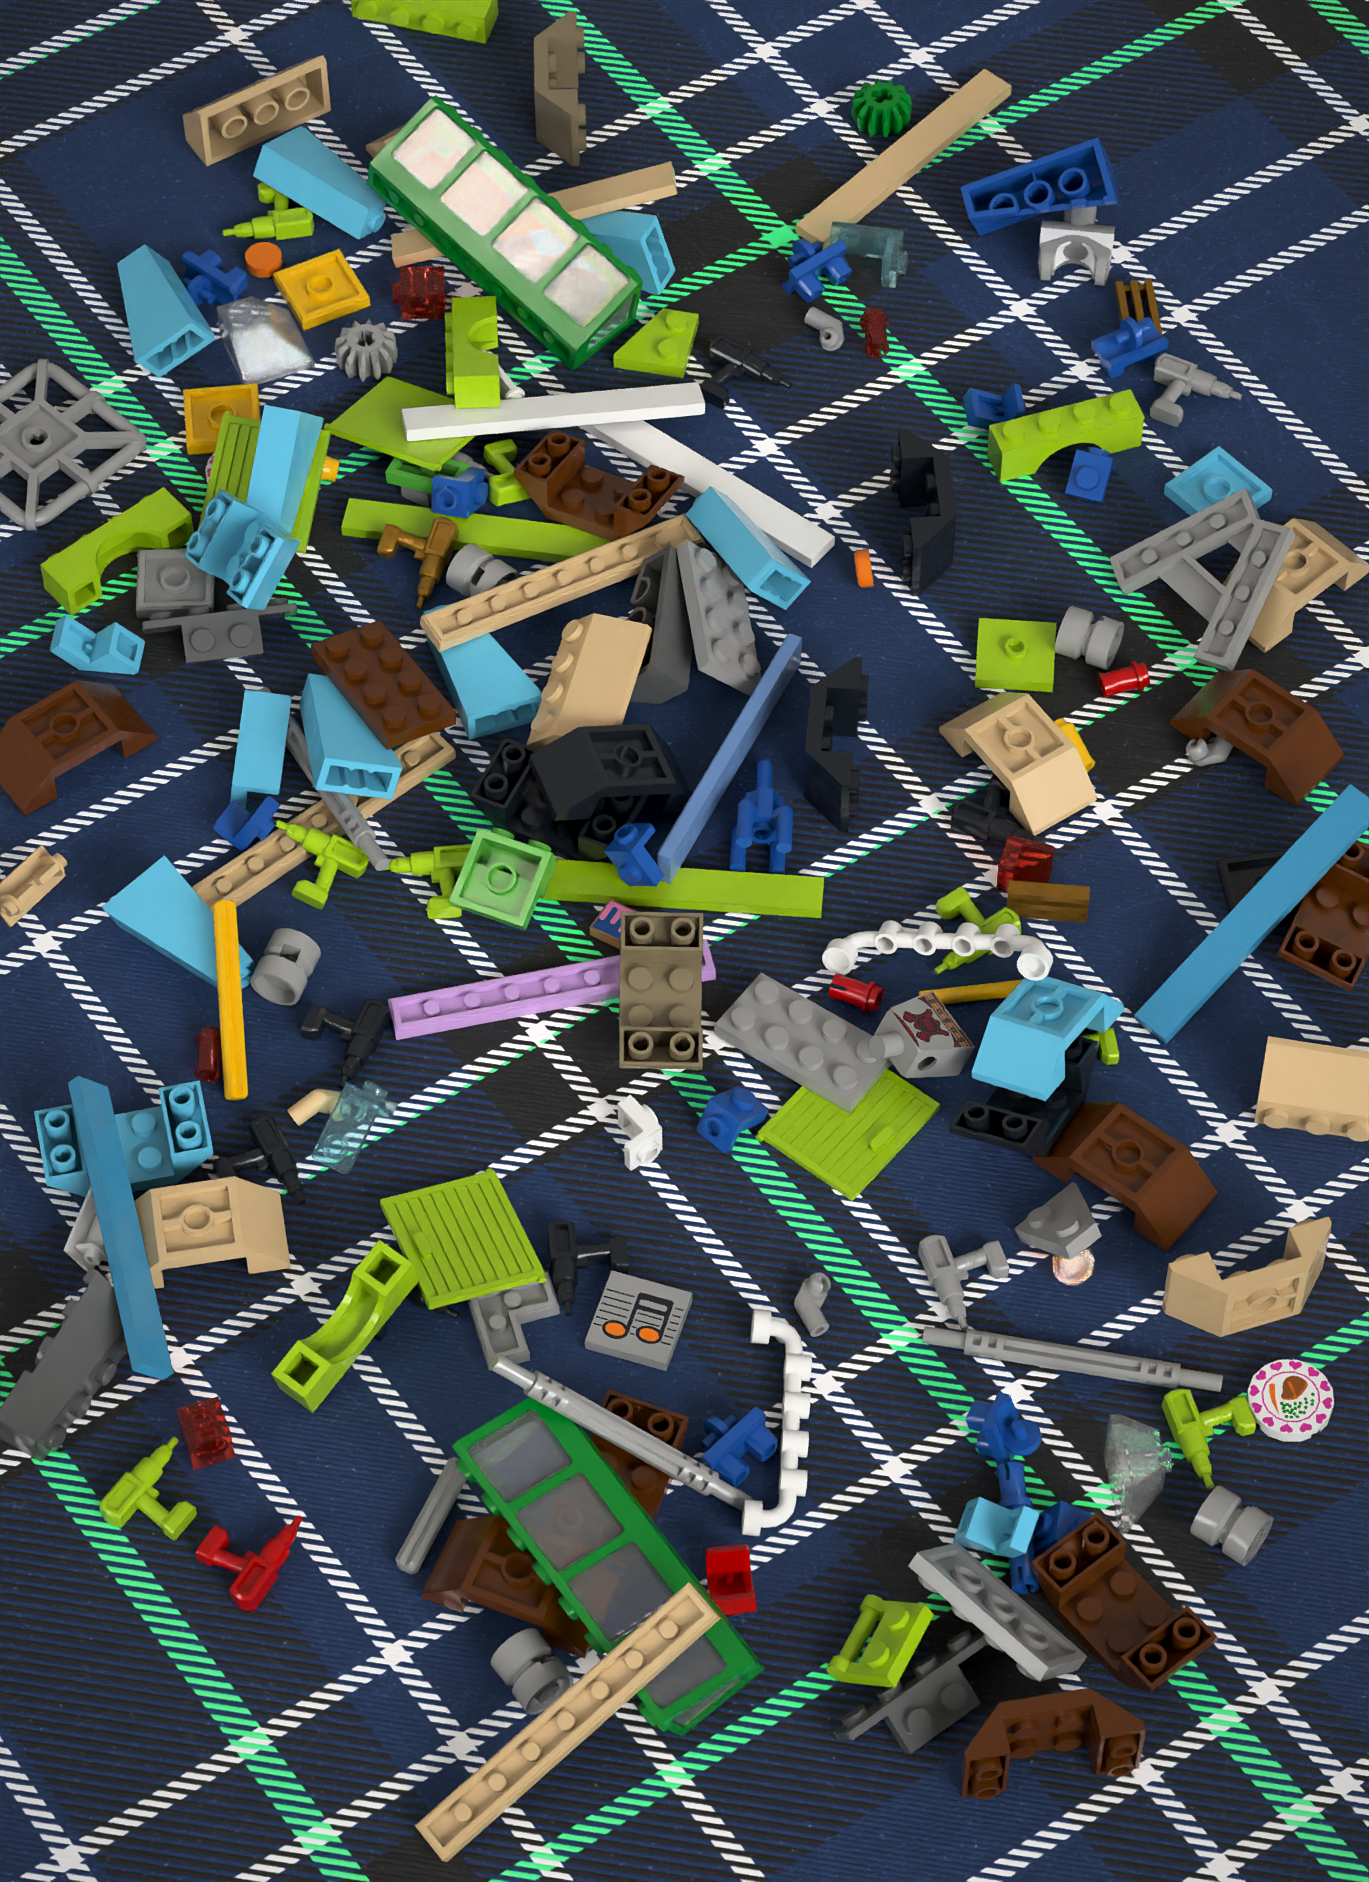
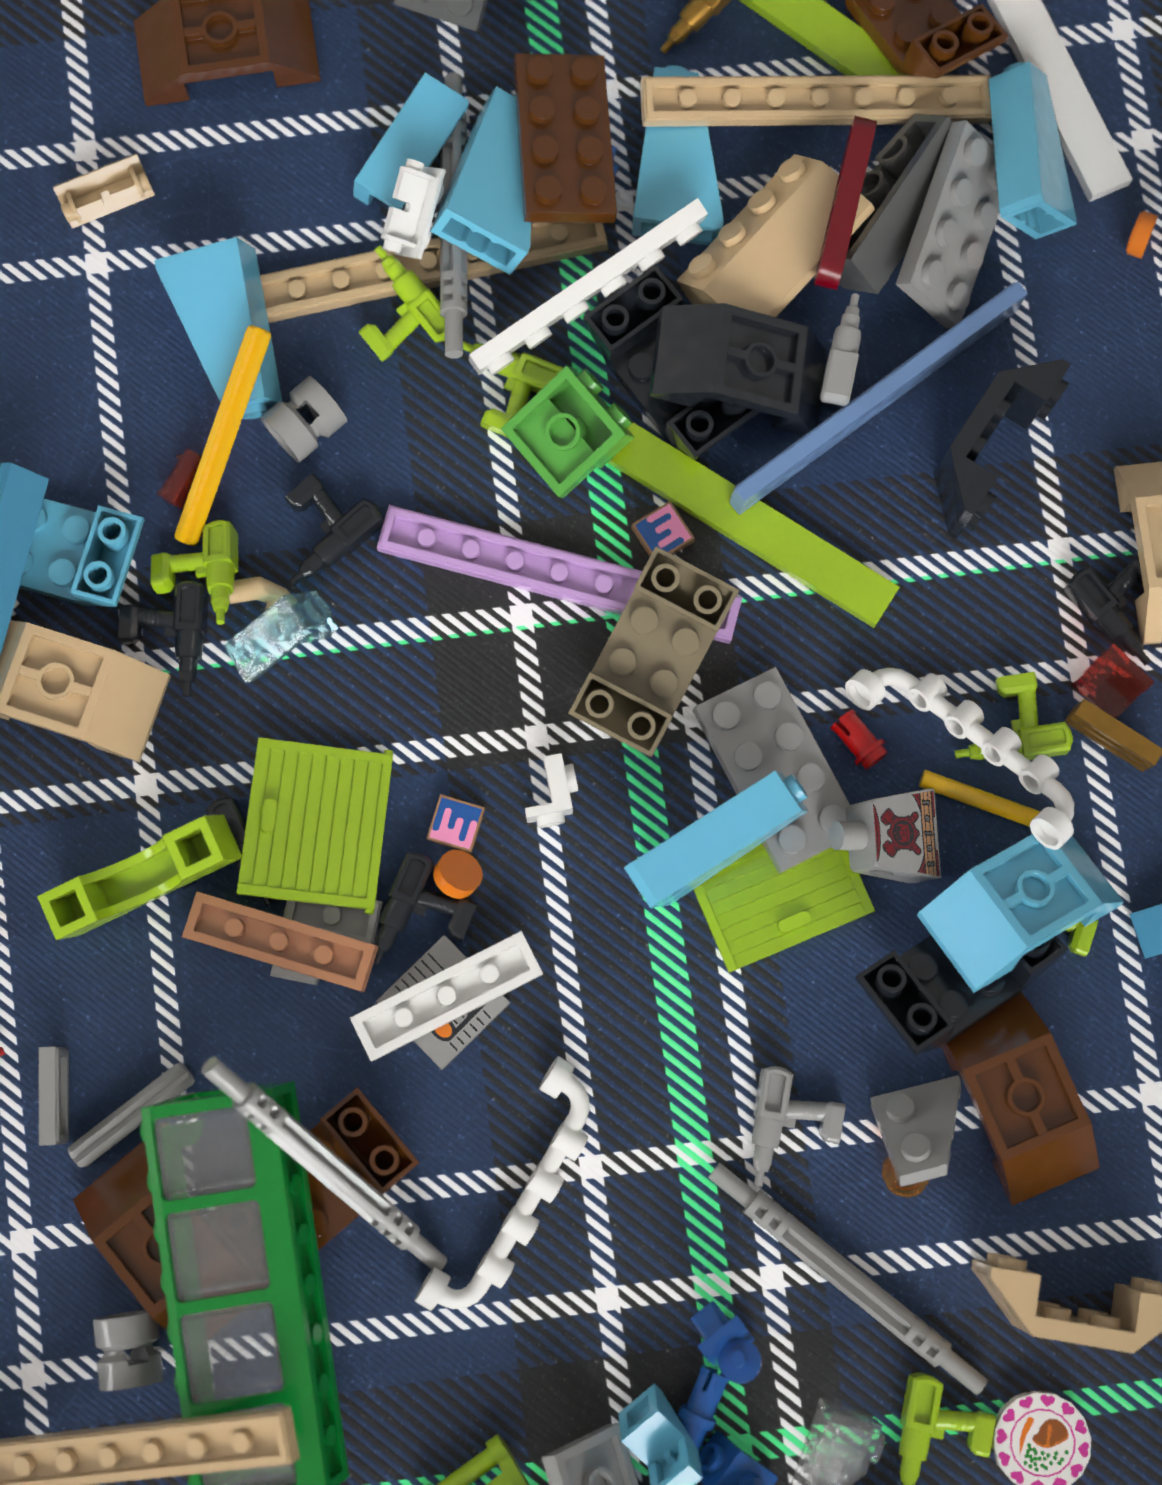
camera: 25 degrees right, 25 degrees up
(242, 827) = (349, 229): blue bracket -> none
(271, 1094) = (216, 563): none -> lime piece
(296, 794) = (409, 230): none -> white hinge
(362, 1525) = (53, 1095): none -> light grey tile
(455, 786) = (605, 278): none -> white plate
(476, 571) = (737, 46): light grey wheel -> none
(483, 1330) = (280, 941): none -> nougat plate
(574, 1194) = (455, 824): none -> tile
(597, 1223) = (457, 874): none -> orange tile
(628, 628) = (845, 202): none -> dark red beam
(630, 856) = (706, 469): blue bracket -> none
(639, 1306) = (446, 996): none -> white plate
(690, 740) = (842, 357): none -> light grey piece
(729, 1115) = (654, 818): blue bracket -> none
(730, 1579) = (371, 1353): red bracket -> none
(731, 1439) = (437, 1213): blue hips -> none
(762, 820) = (871, 491): blue plant -> none
(787, 1095) = (717, 839): none -> medium azure slope
(809, 1302) = (622, 1070): light grey arm -> none

